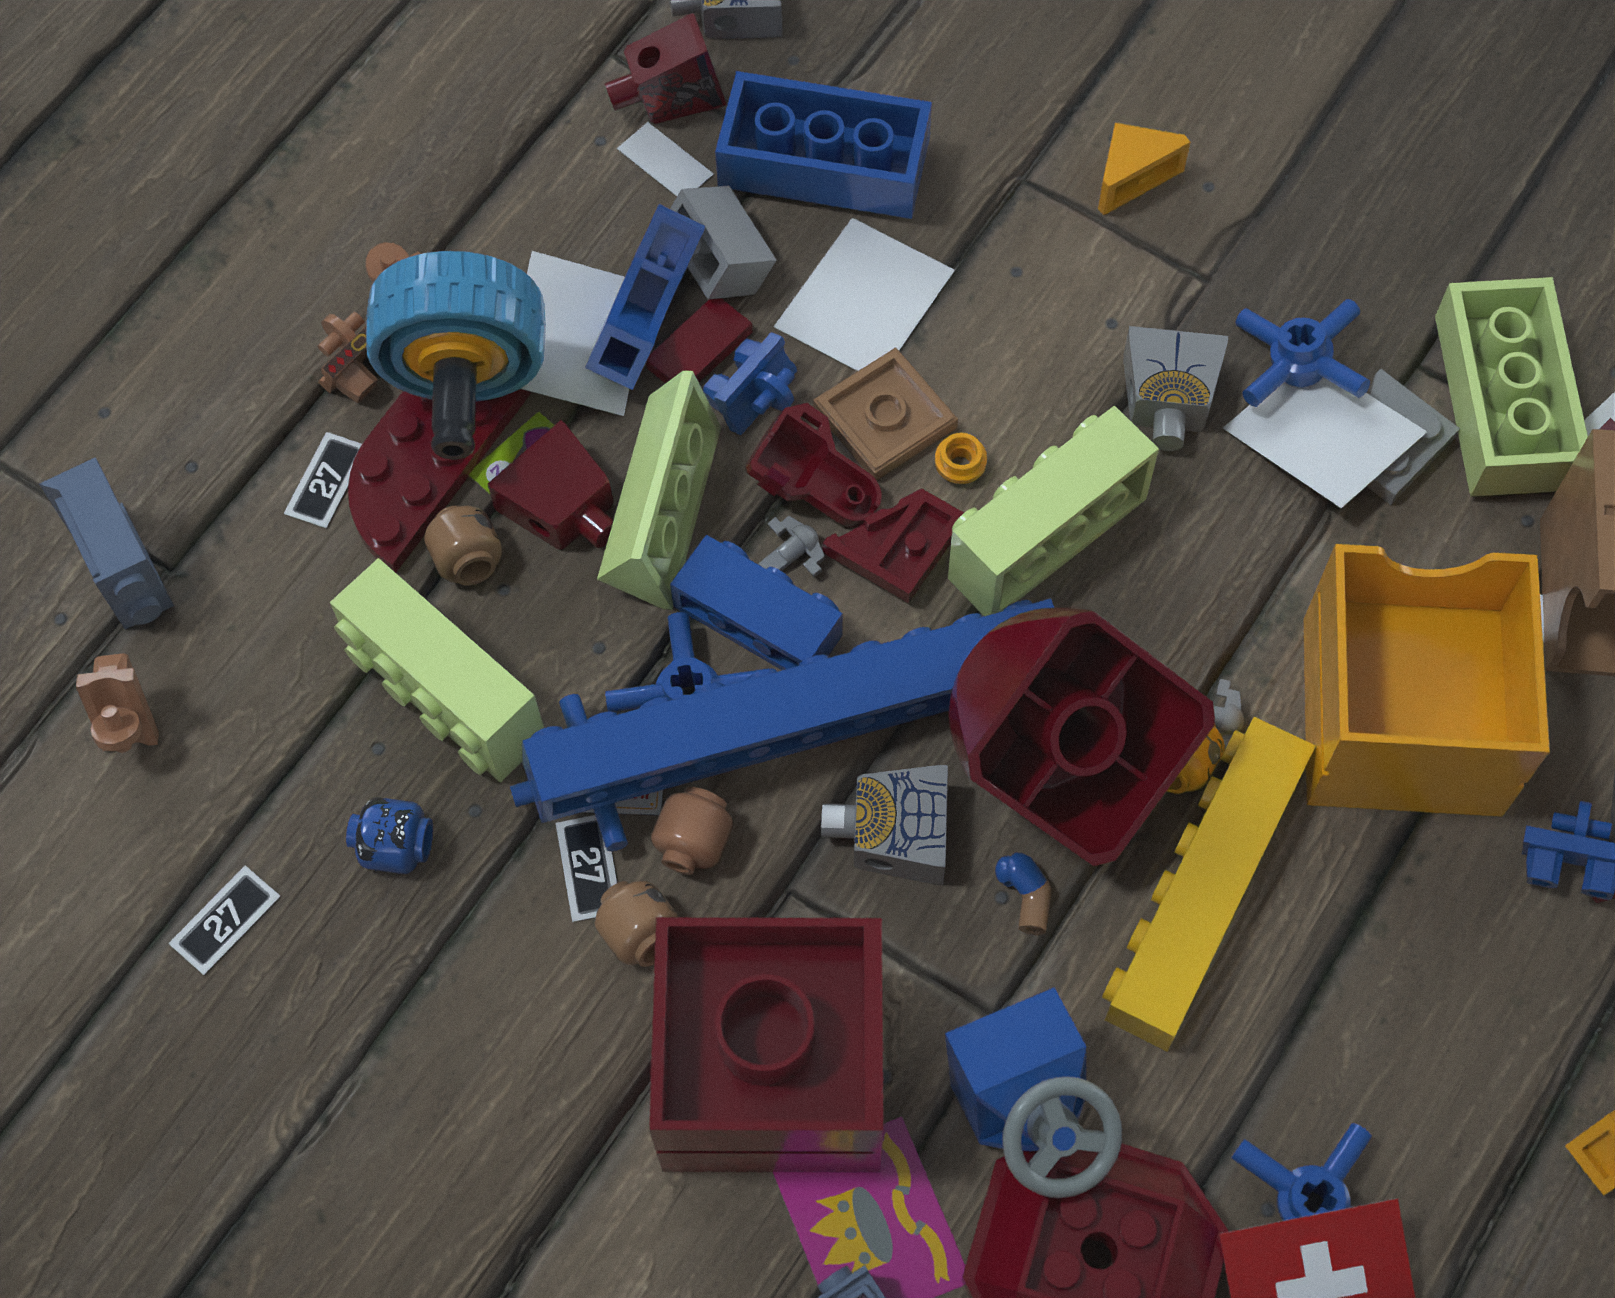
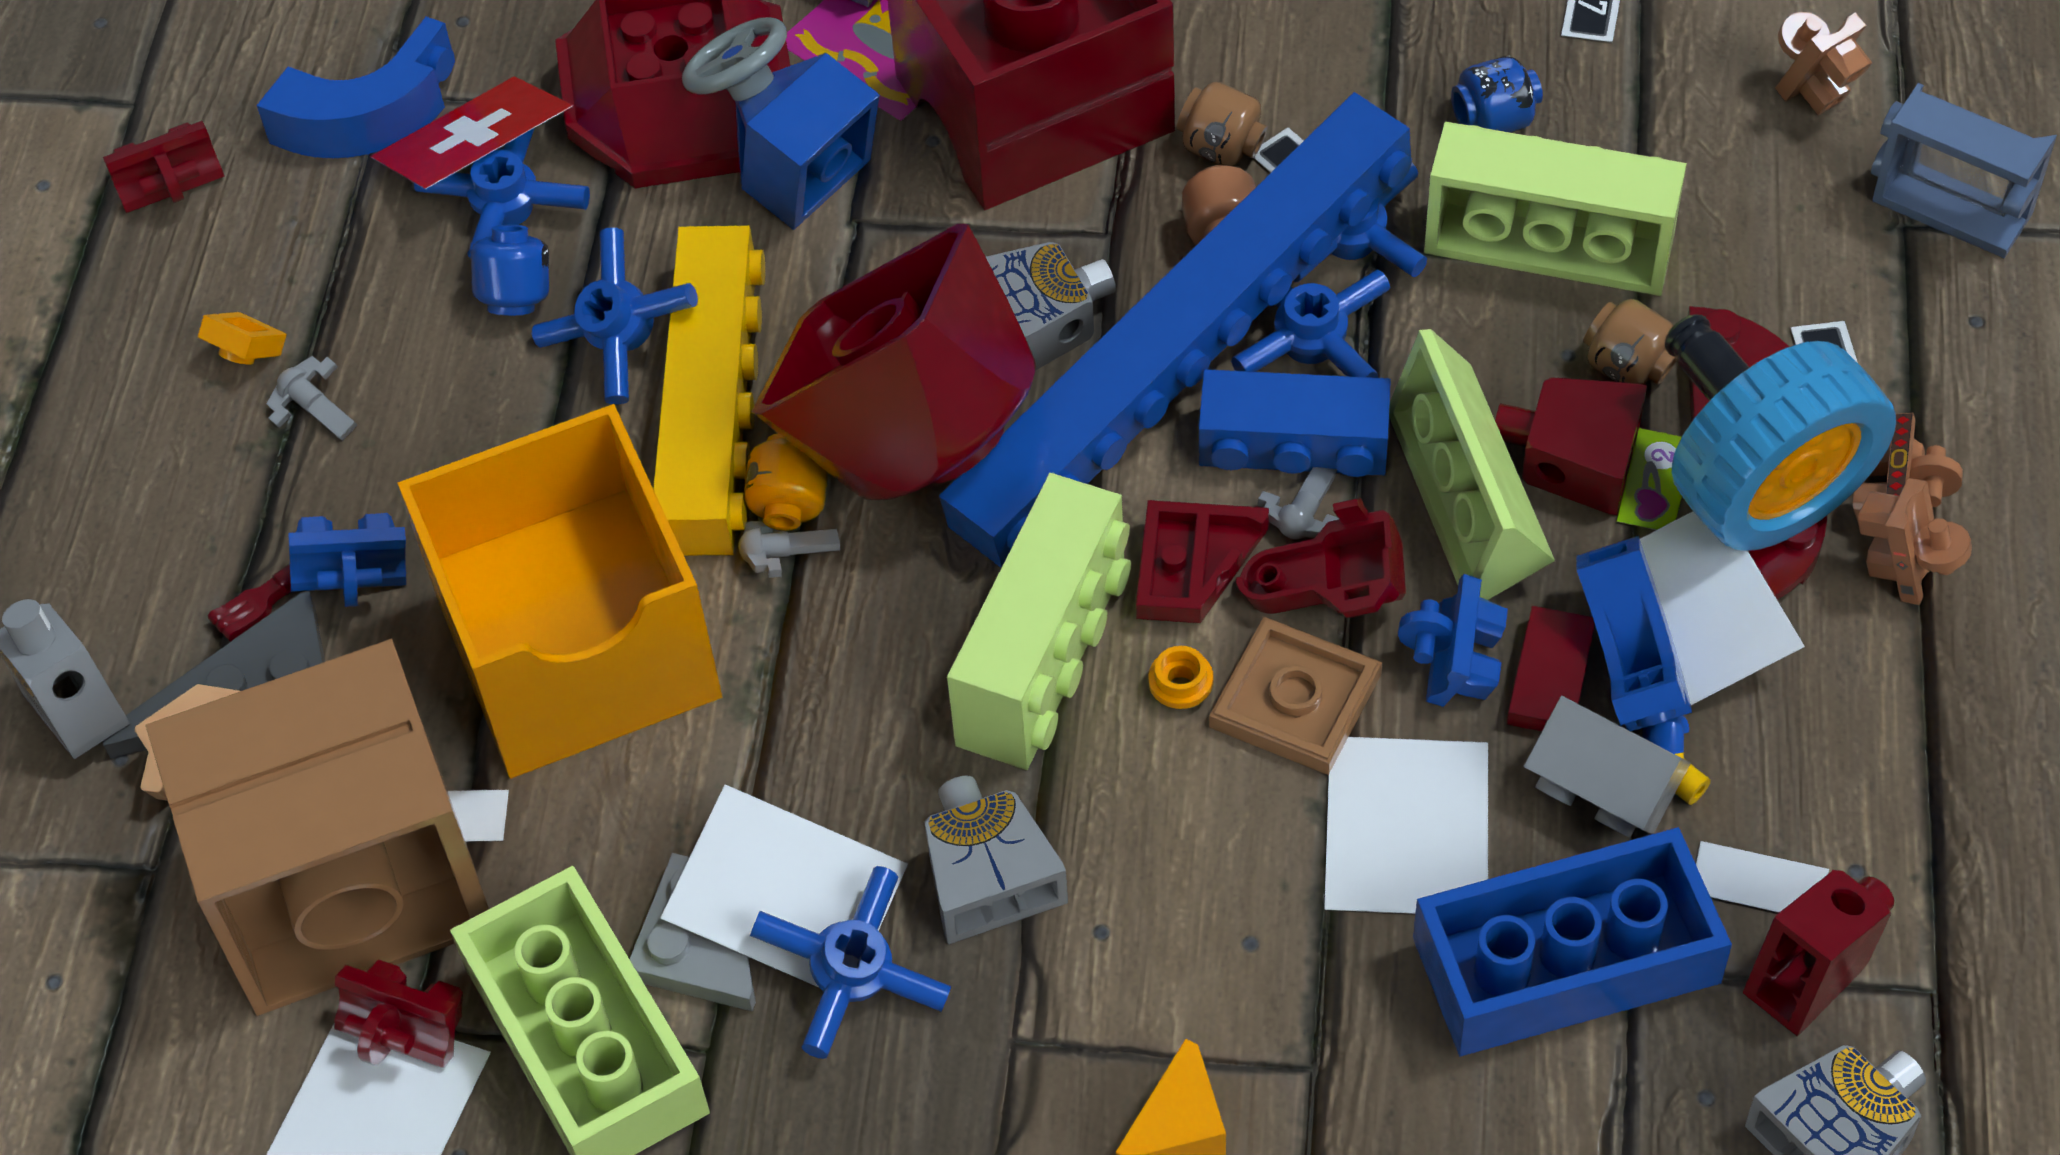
camera: 155 degrees right, 10 degrees down
(1266, 980) = (614, 315): none -> blue bar
(1341, 1085) = (510, 270): none -> blue head
(1569, 1080) = (296, 386): none -> light grey piece

